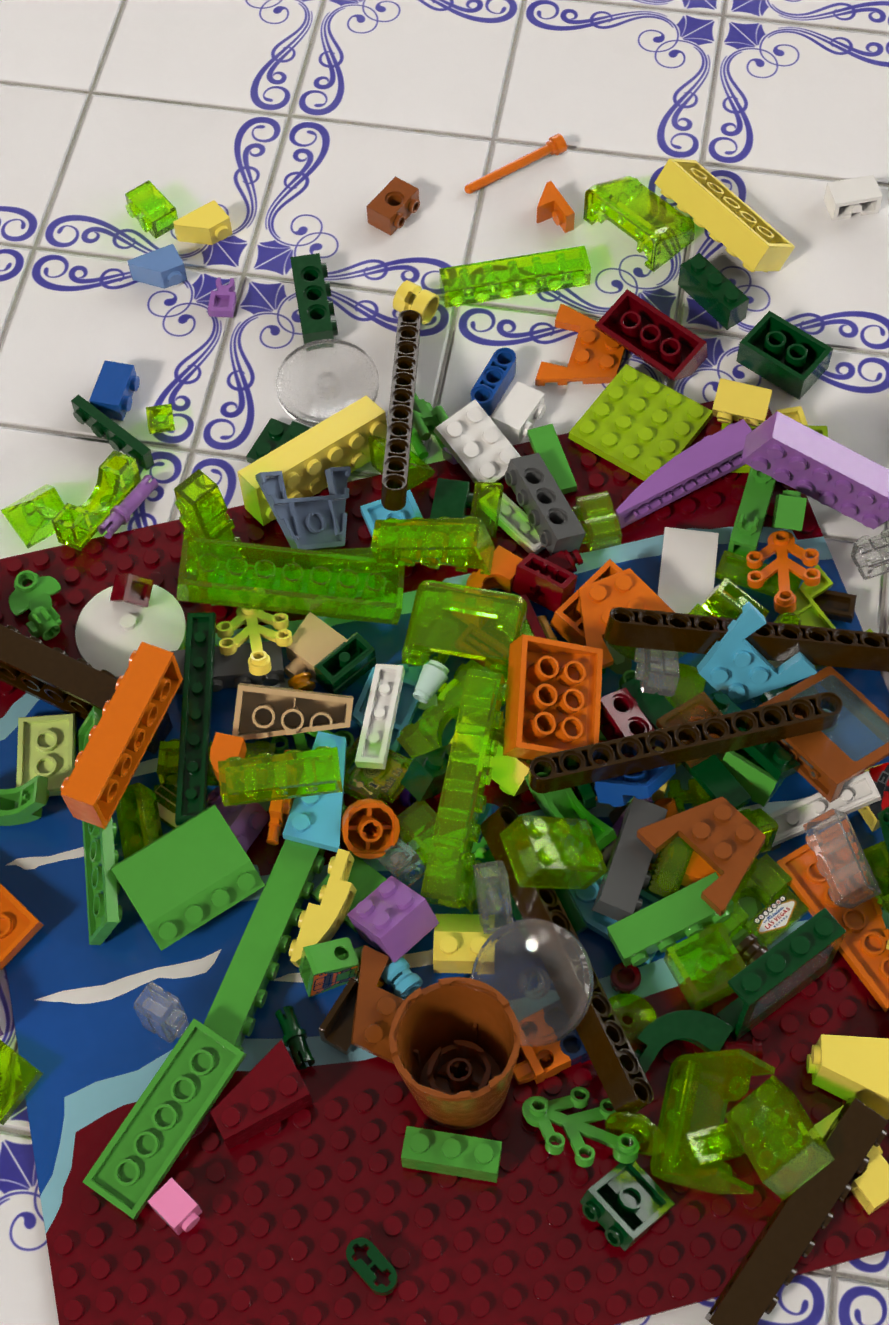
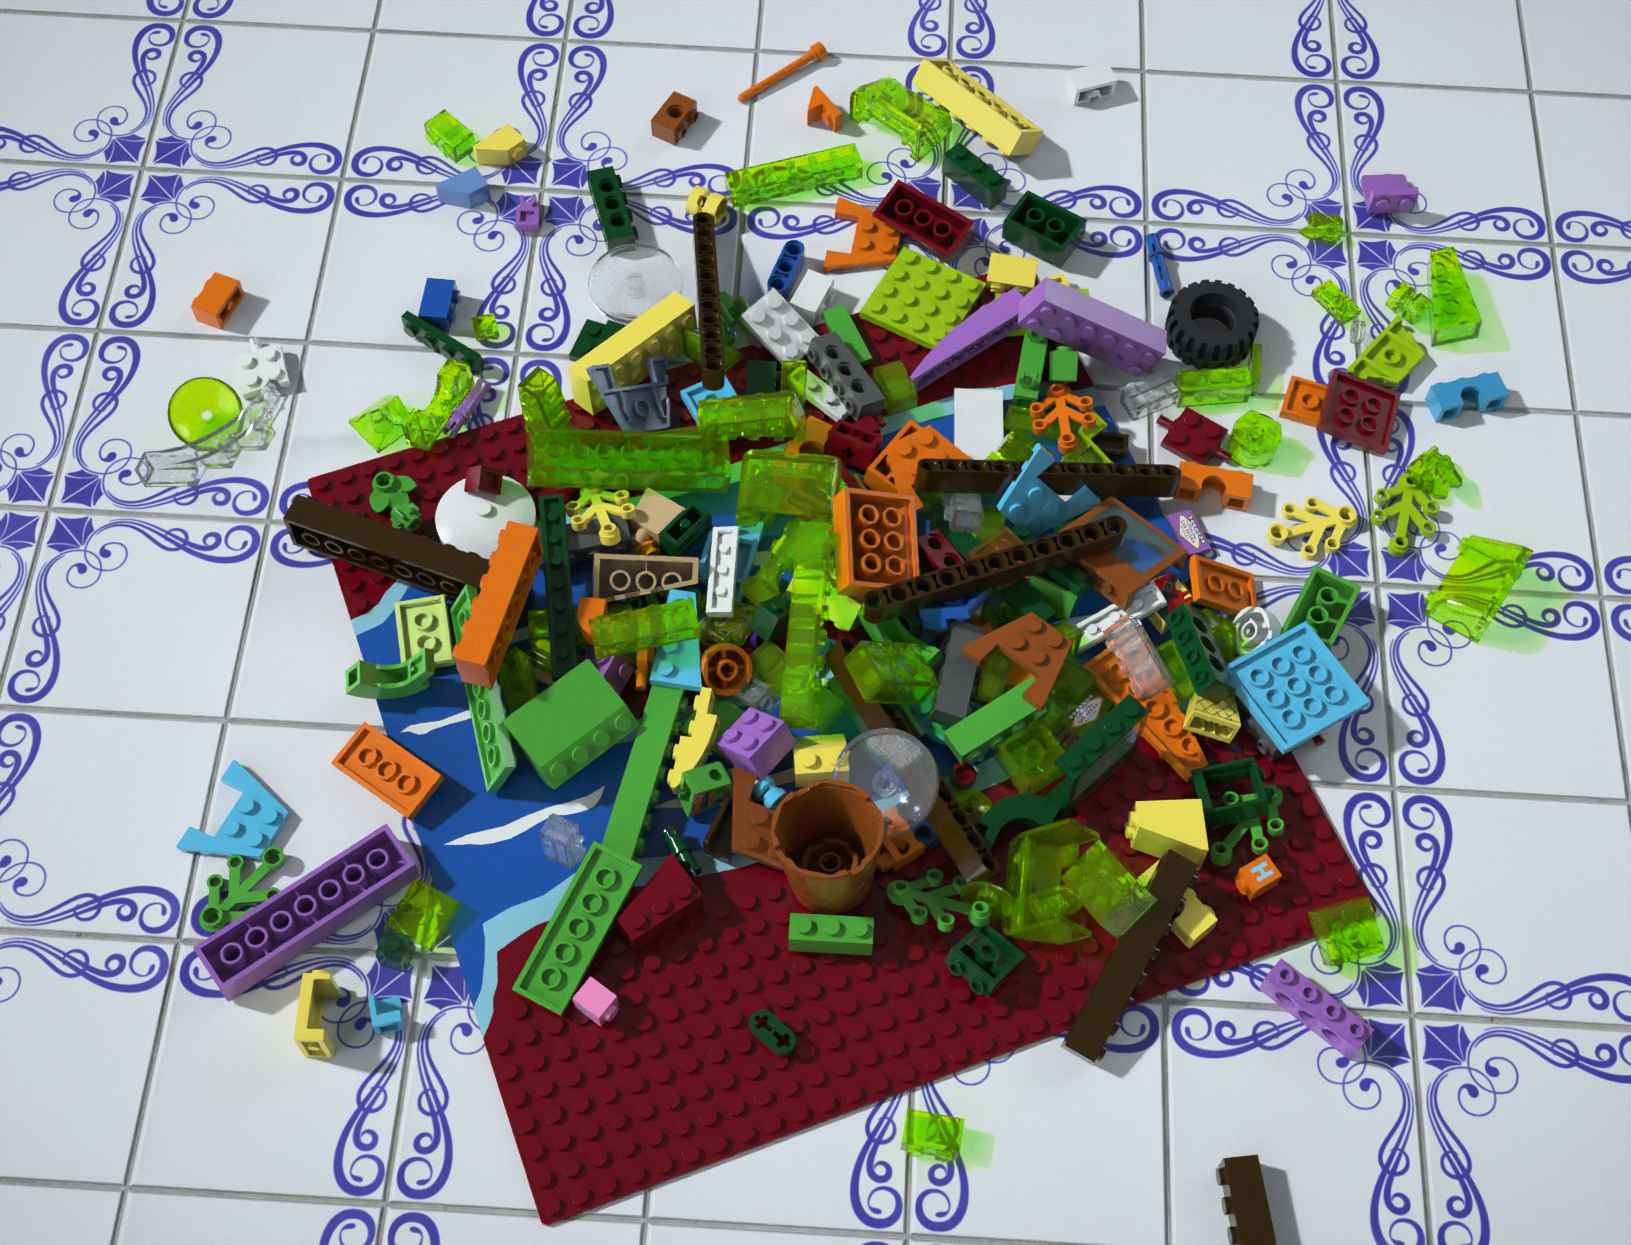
camera: 10 degrees left, 0 degrees up
(430, 680) = (763, 537): light aqua cone -> none
(492, 895) = (842, 714): clear brick -> none

